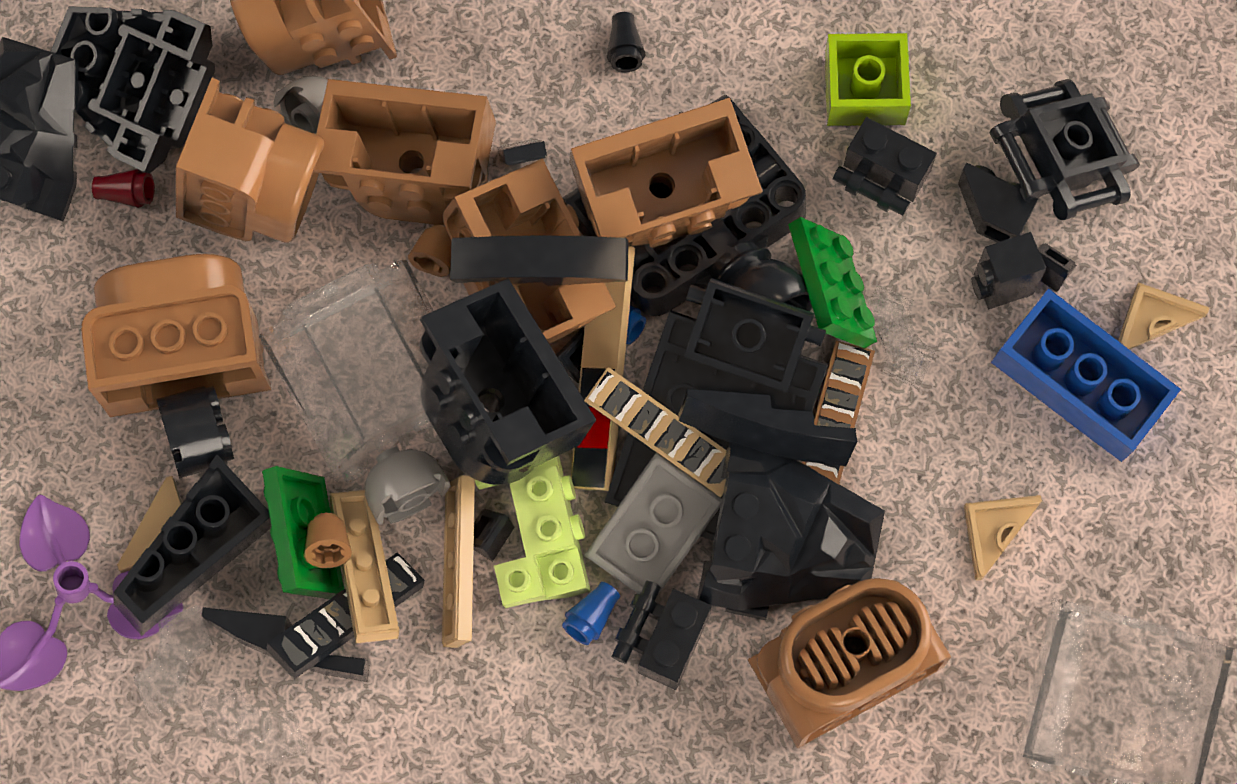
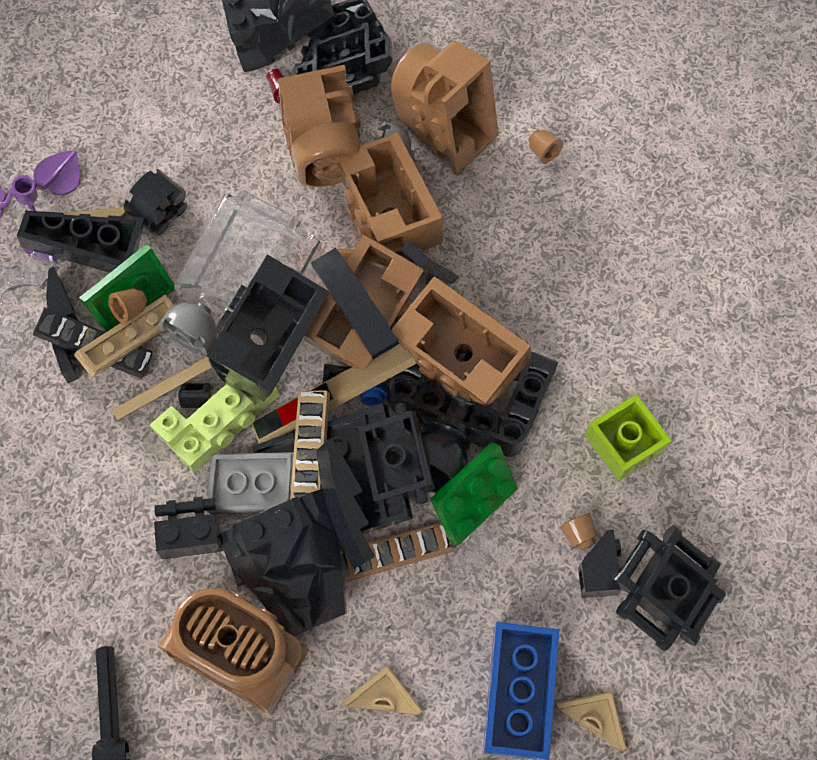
camera: 55 degrees right, 5 degrees down
(170, 331) = (200, 150): medium nougat brick -> none
(588, 617) = (178, 480): blue cone -> none
(625, 46) = (551, 289): black cone -> none
(887, 160) = (584, 483): black brick -> none
(940, 200) = (580, 531): none -> medium nougat hat
(1008, 271) = (556, 597): black brick -> none
(1057, 267) = (585, 627): black slope -> none

